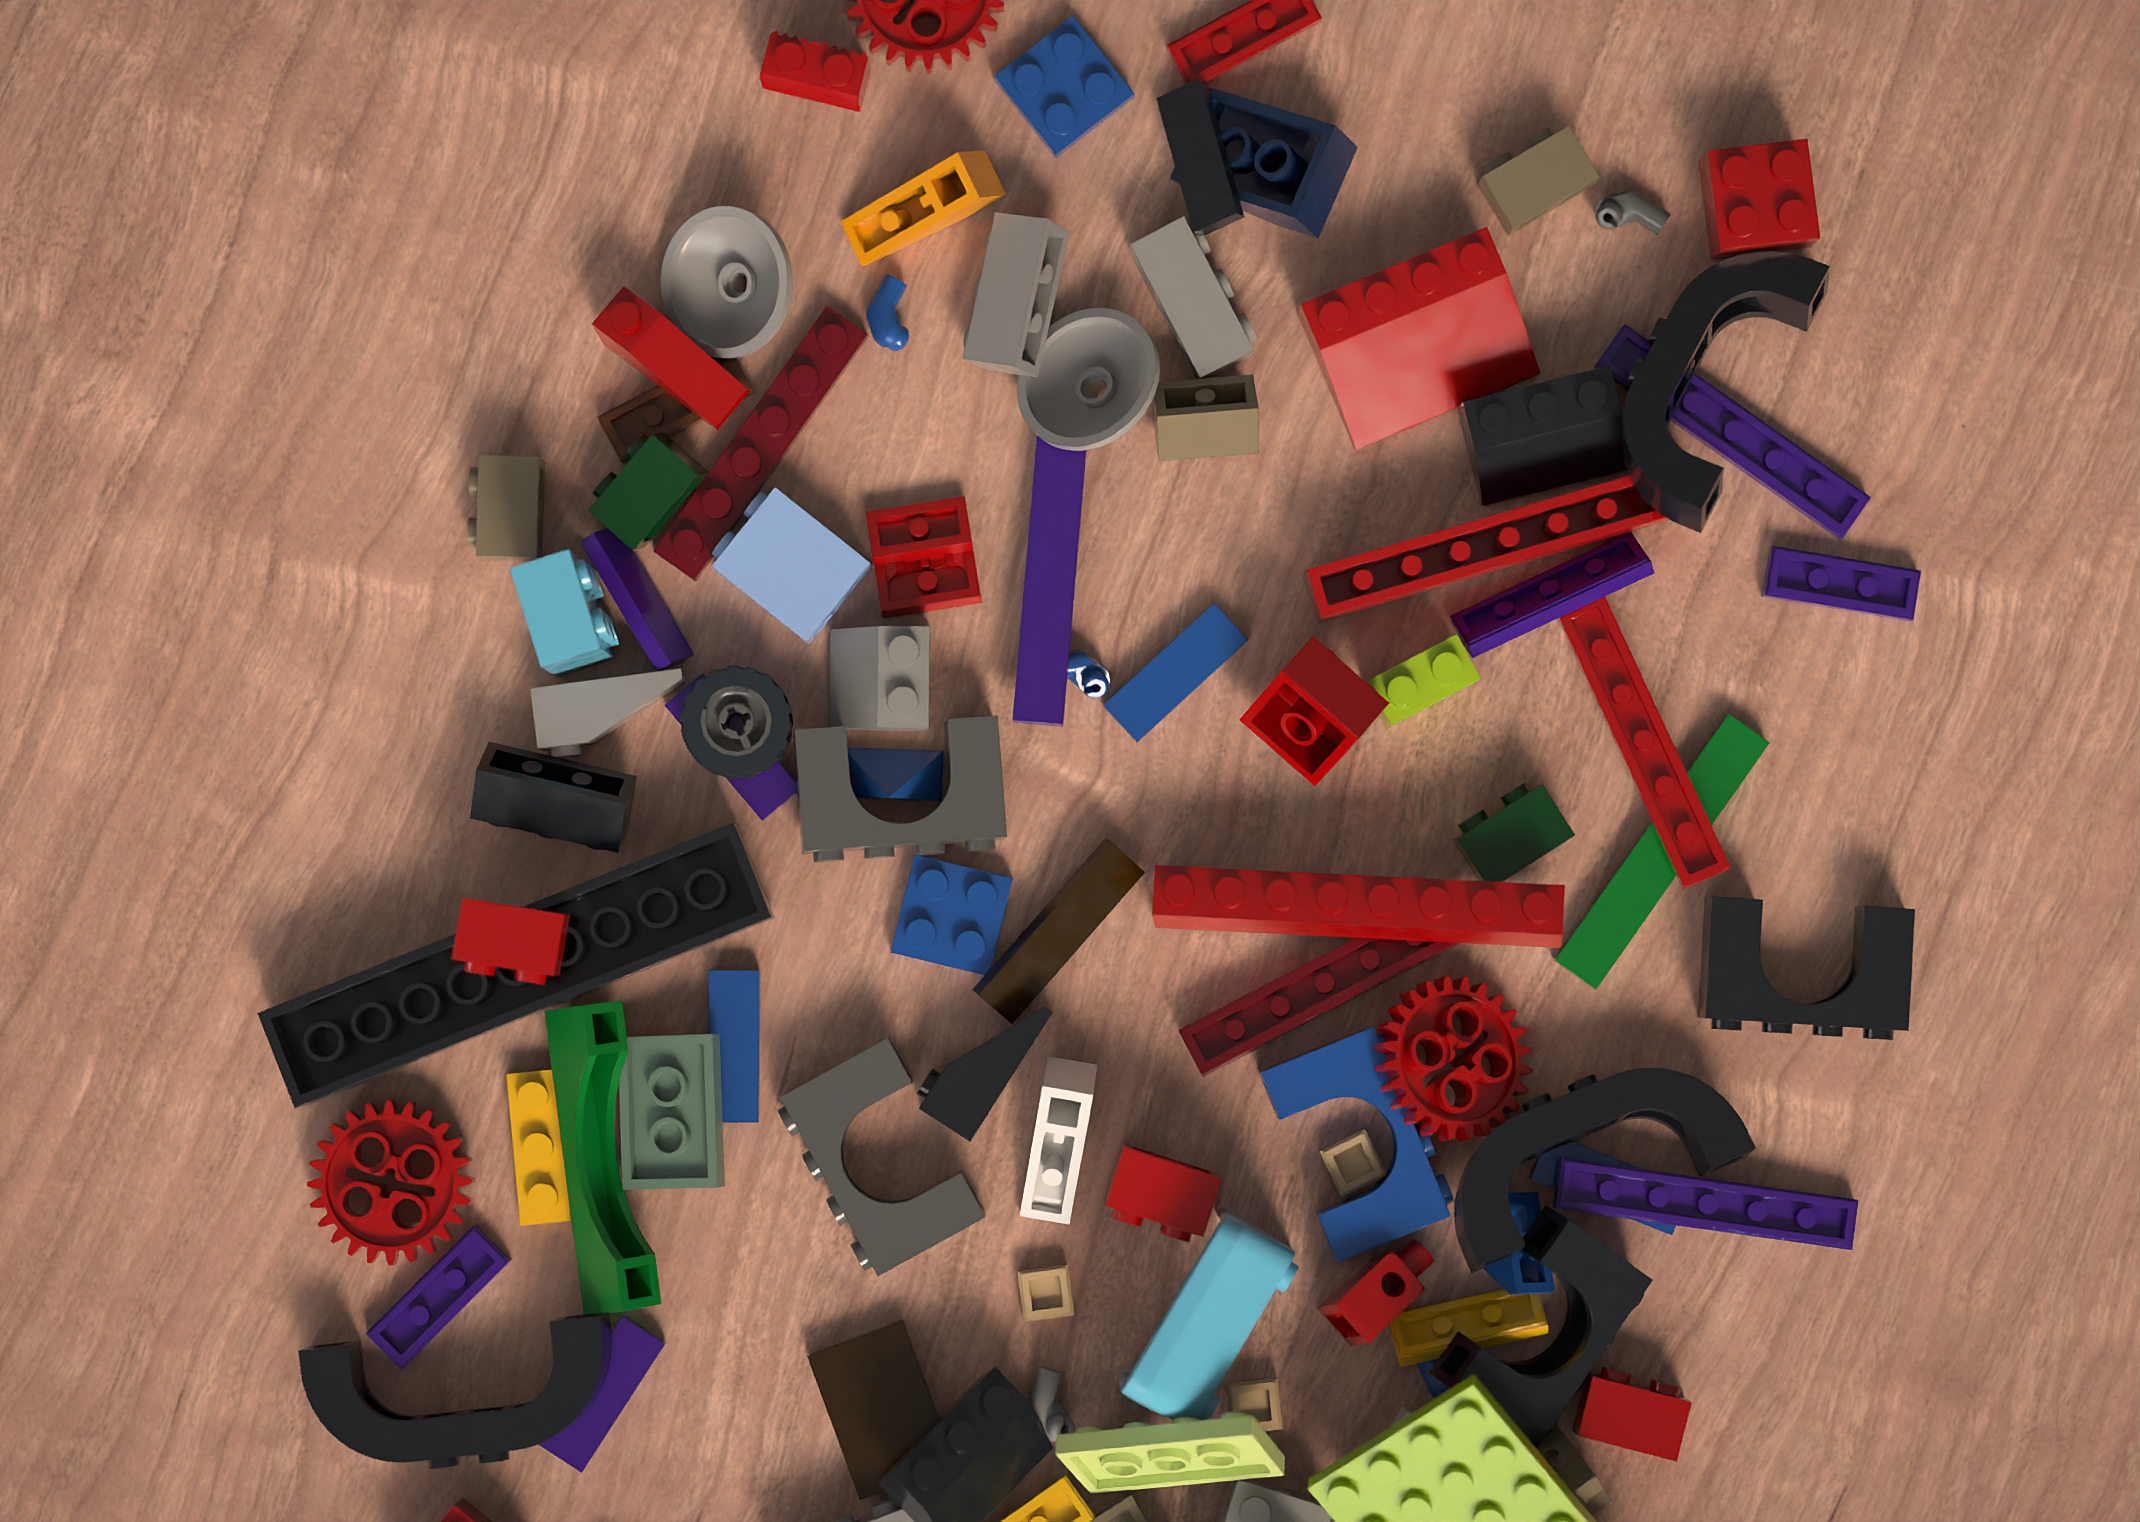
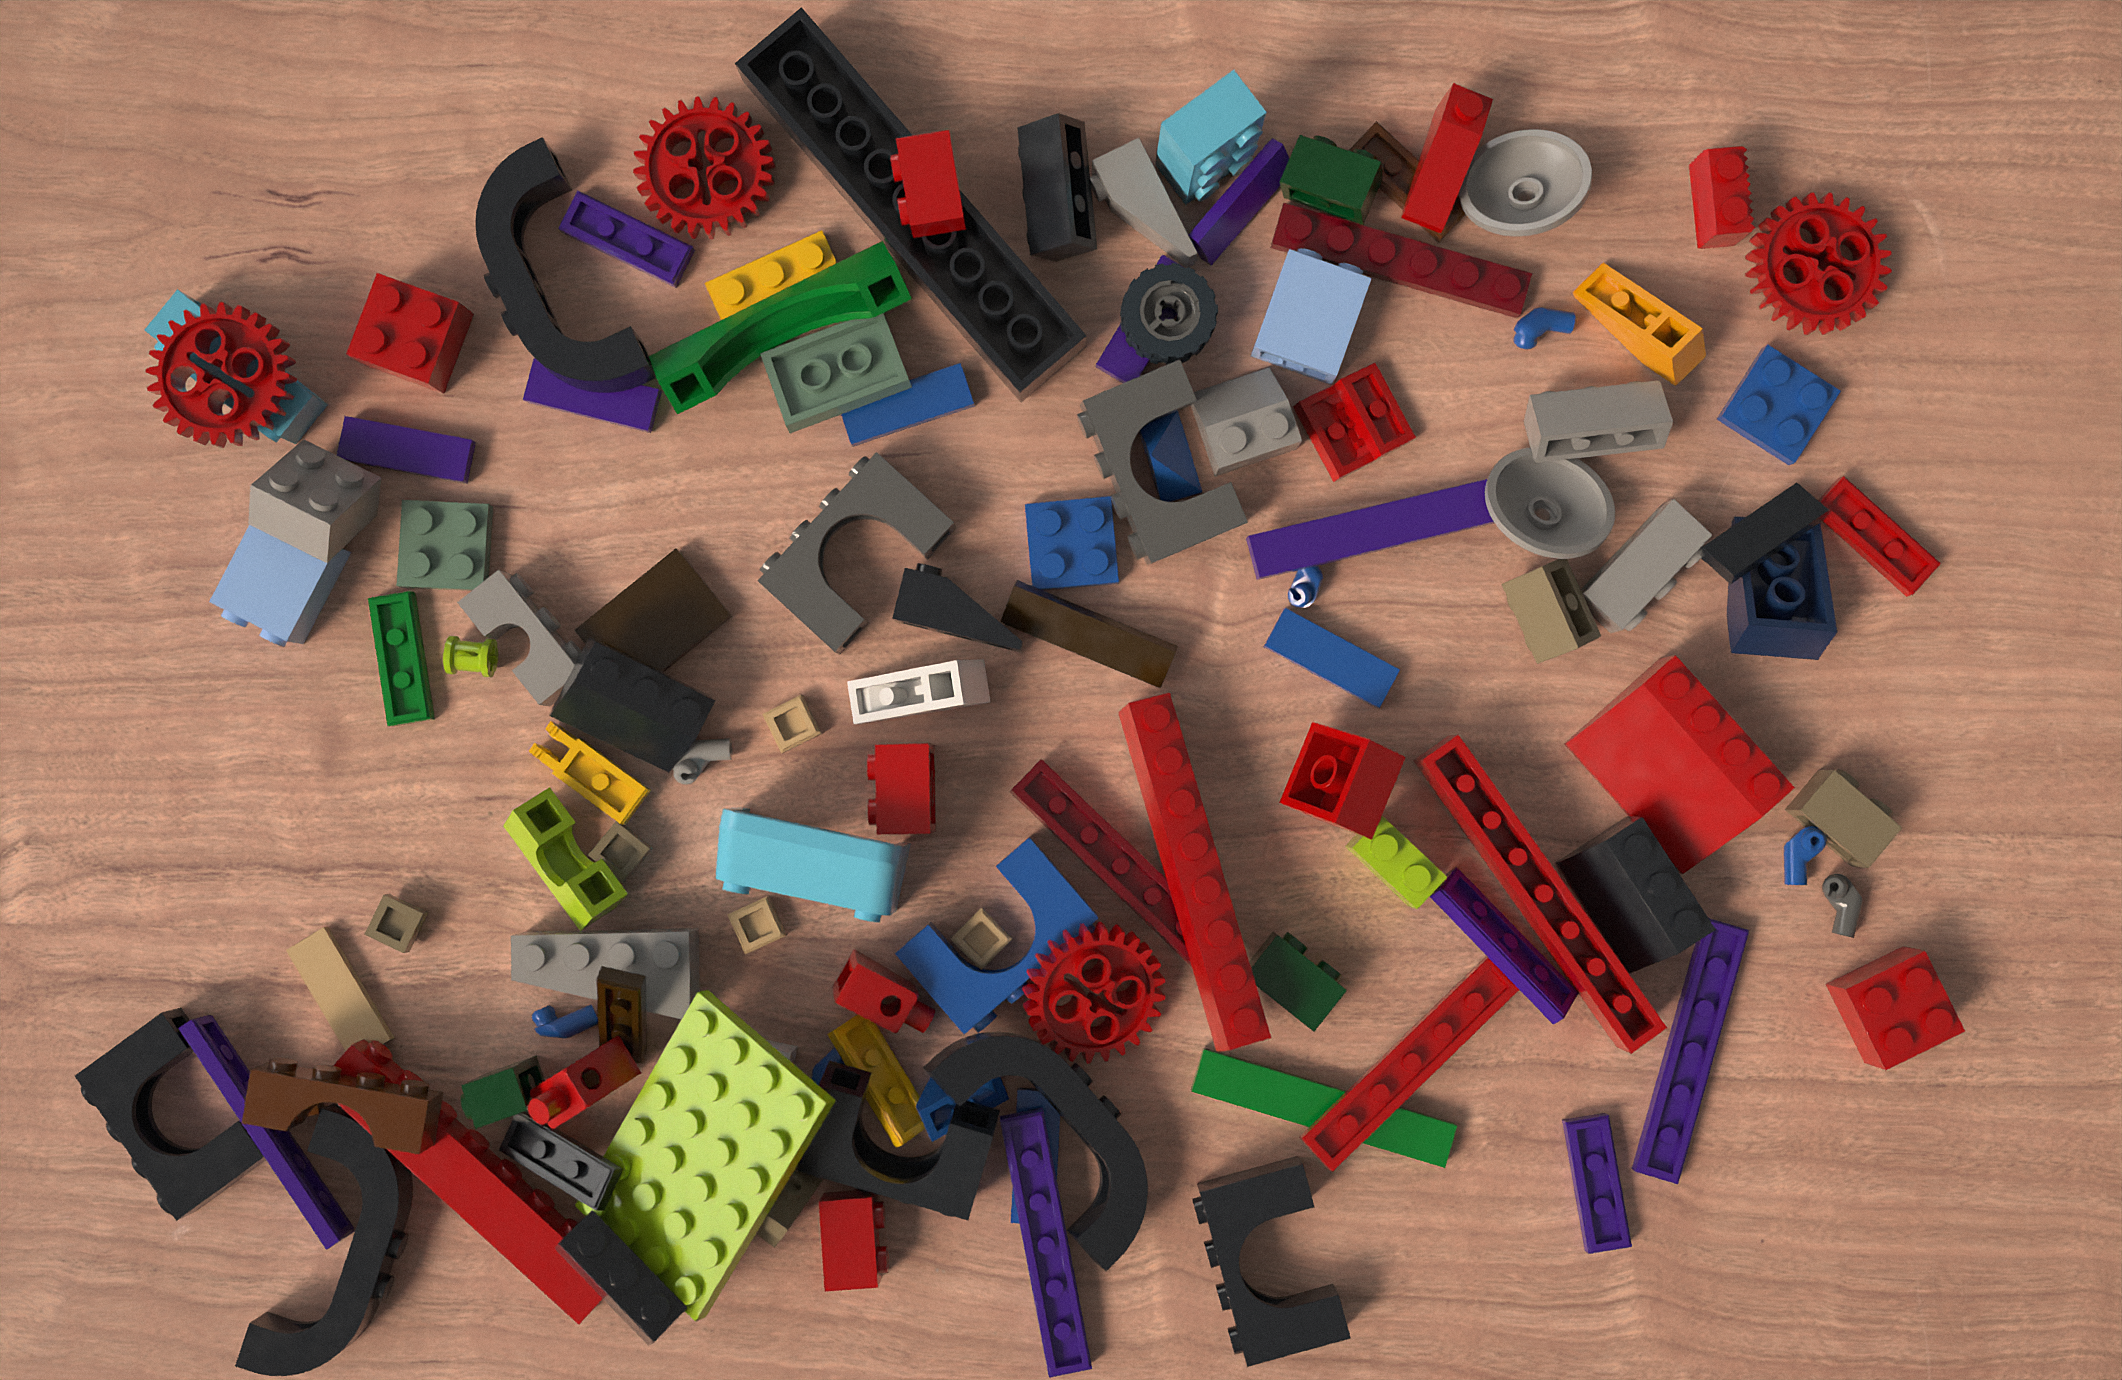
camera: 80 degrees right, 0 degrees up
(508, 508) = (1283, 71): dark tan brick -> none
(1170, 1453) = (689, 868): yellowish green plate -> none
(1559, 240) = (1799, 852): none -> blue arm
(1737, 288) = (1821, 1025): black arch -> none

